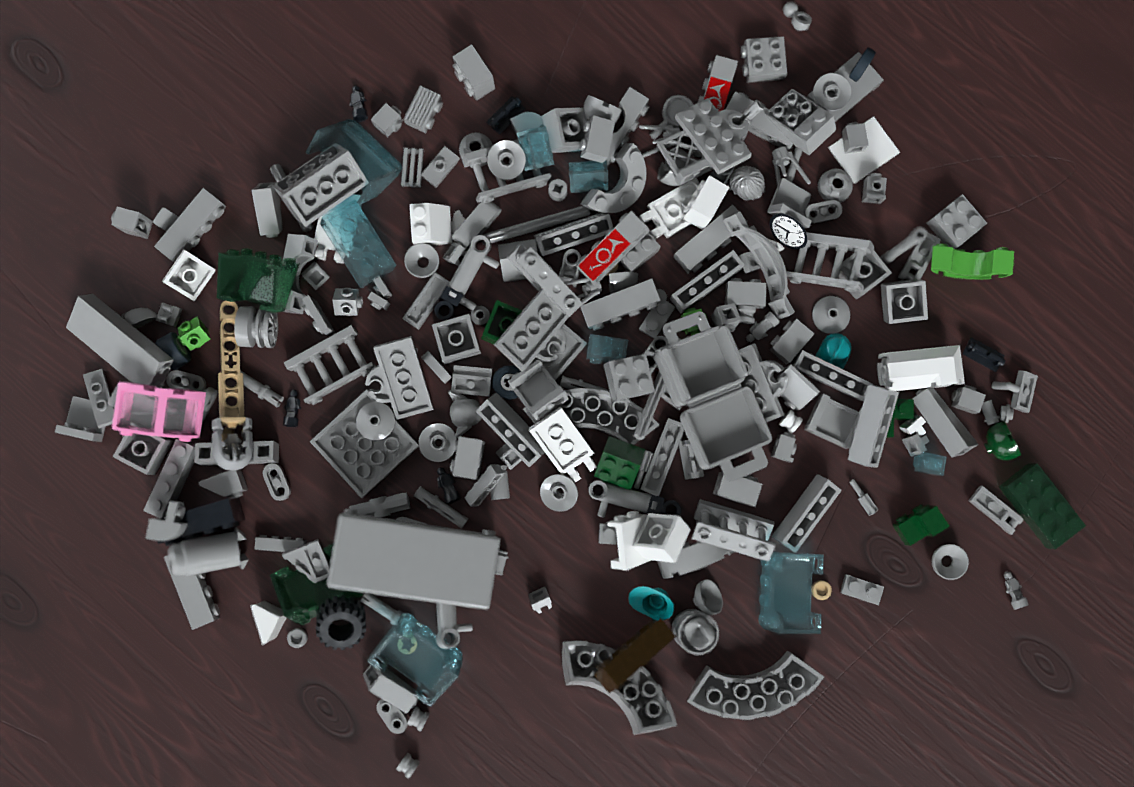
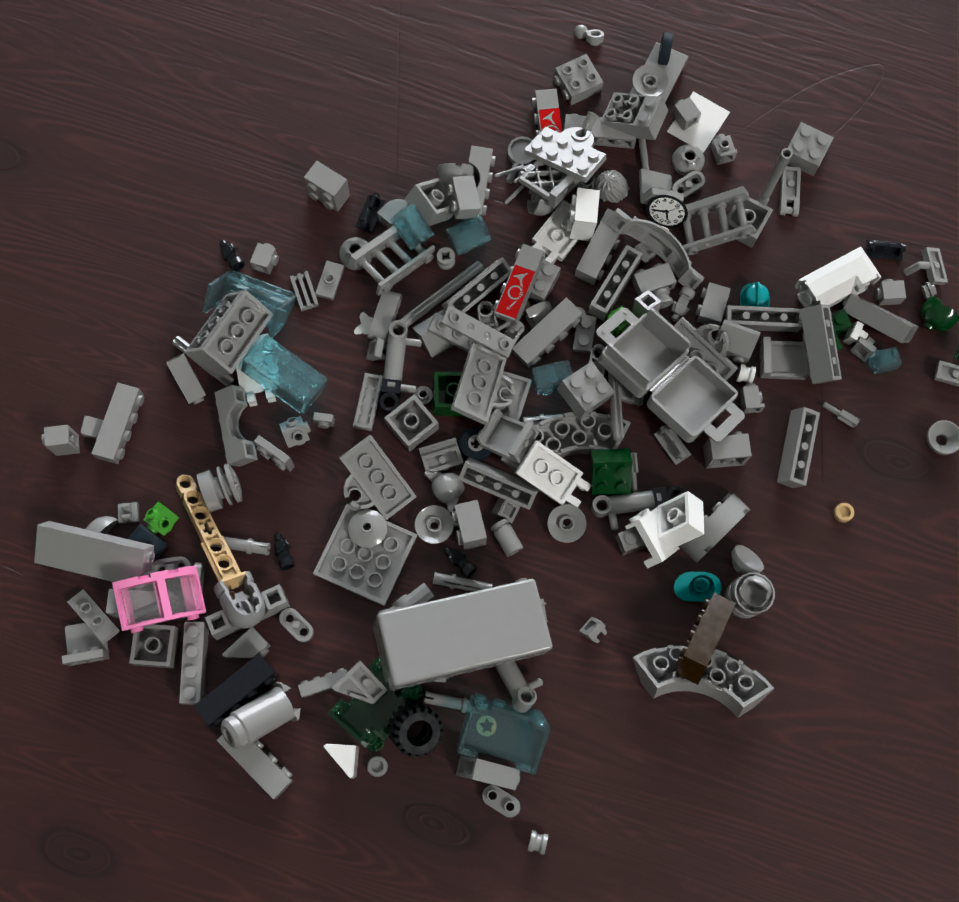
camera: 25 degrees left, 10 degrees down
(170, 528) = (215, 704): light grey brick -> none
(188, 275) = (134, 468): white slope -> none
(256, 278) = (201, 443): clear green windscreen -> none
(314, 354) = (283, 492): light grey fence -> none
(315, 275) = (253, 421): light grey slope -> none
(381, 288) = (322, 406): light grey plate -> none
(418, 718) = (528, 792): light grey wheel -> none
(419, 251) = (345, 359): light grey piece -> none
(423, 109) = (293, 236): light grey brick -> none
(430, 224) = (342, 333): white slope -> none
(436, 367) = (403, 457): light grey beam -> none
(484, 485) = (495, 544): light grey piece -> none
(499, 152) = (388, 237): light grey dish -> none
(628, 187) = (509, 228): light grey brick -> none
(663, 457) = (647, 452): light grey plate -> none
(735, 520) = (741, 487): light grey fence -> none
(754, 694) = (831, 631): light grey brick -> none
(781, 159) = (632, 155): light grey plant -> none
(787, 593) = (813, 524): clear light blue windscreen -> none
(822, 318) = (733, 276): light grey dish -> none
(862, 589) = (879, 496): light grey plate -> none
(904, 301) = (795, 230): light grey brick -> none
(923, 522) = (903, 413): dark green brick -> none
(975, 265) = (839, 177): bright green brick -> none
(989, 413) = (914, 296): light grey pin -> none

